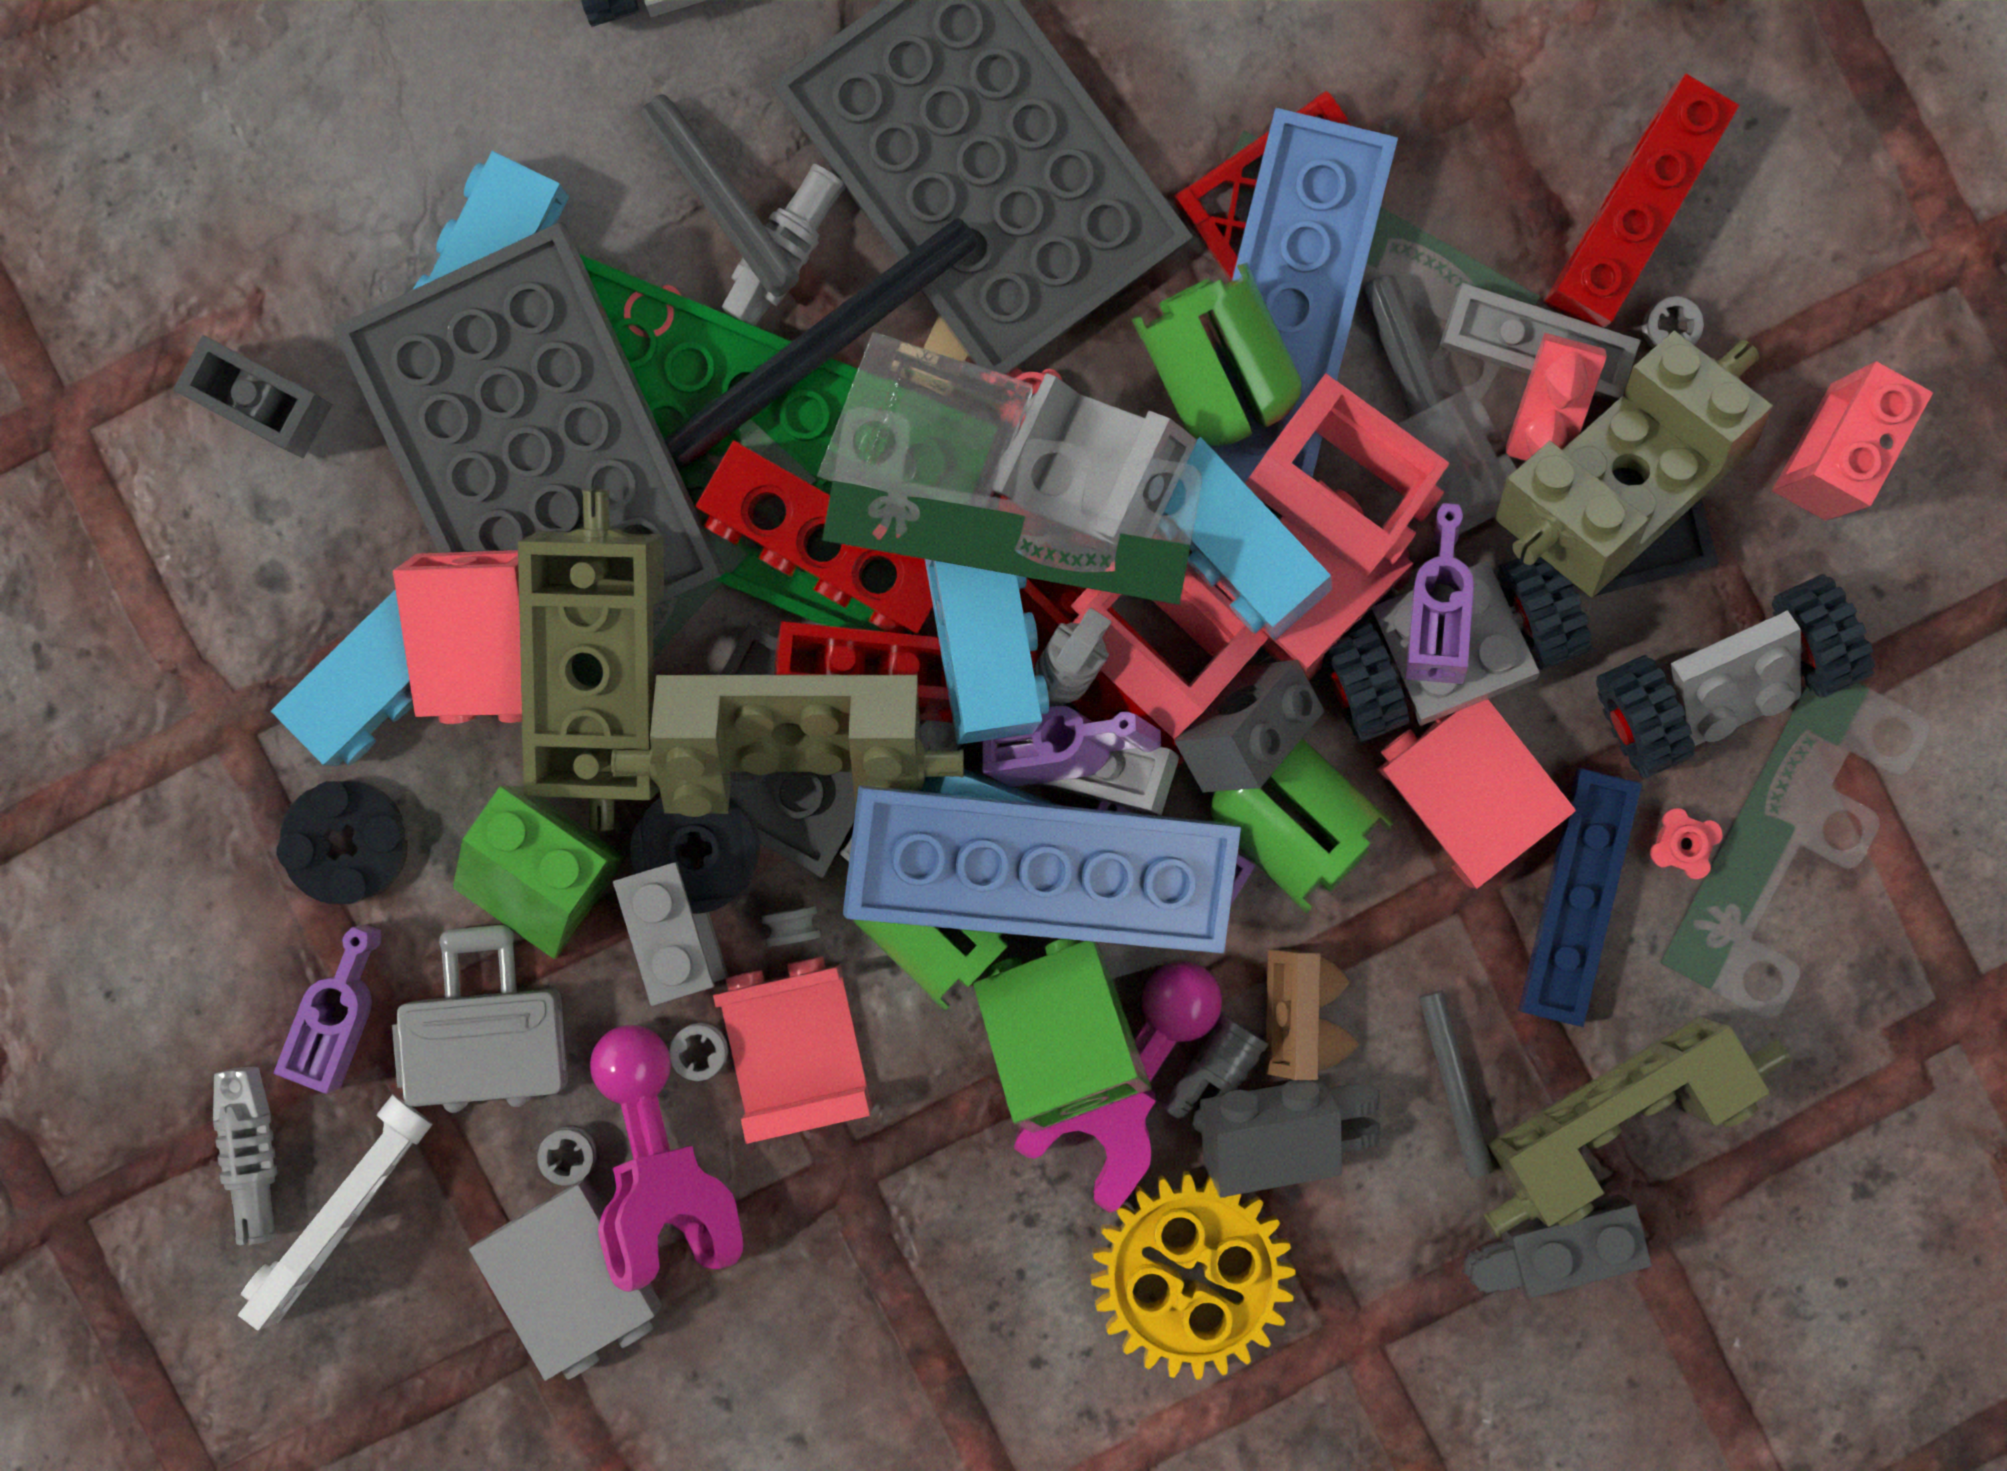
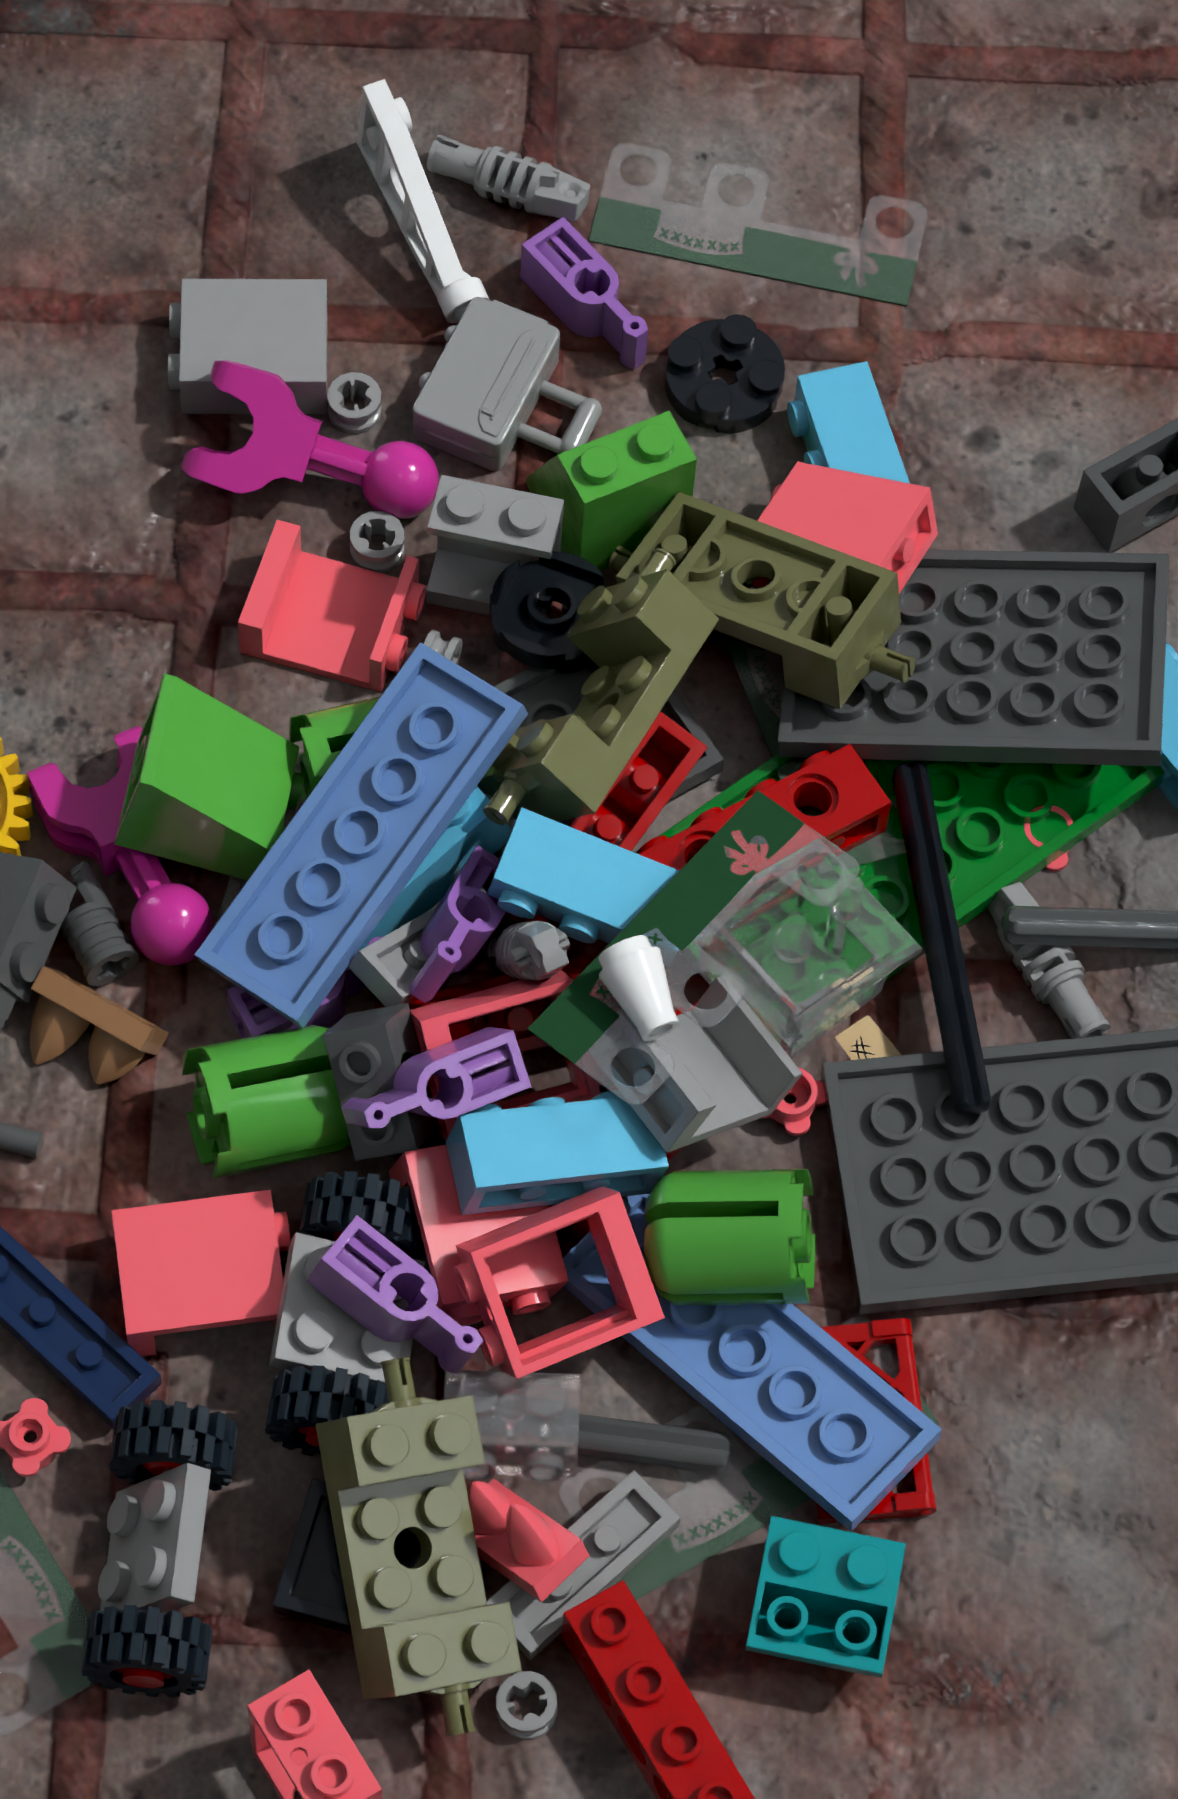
camera: 115 degrees right, 25 degrees down
(184, 909) = (743, 242): none -> clear piece
(1095, 523) = (639, 984): none -> white cone
(1252, 659) = (469, 1073): none -> medium lavender piece
(1469, 129) = (825, 1596): none -> teal slope

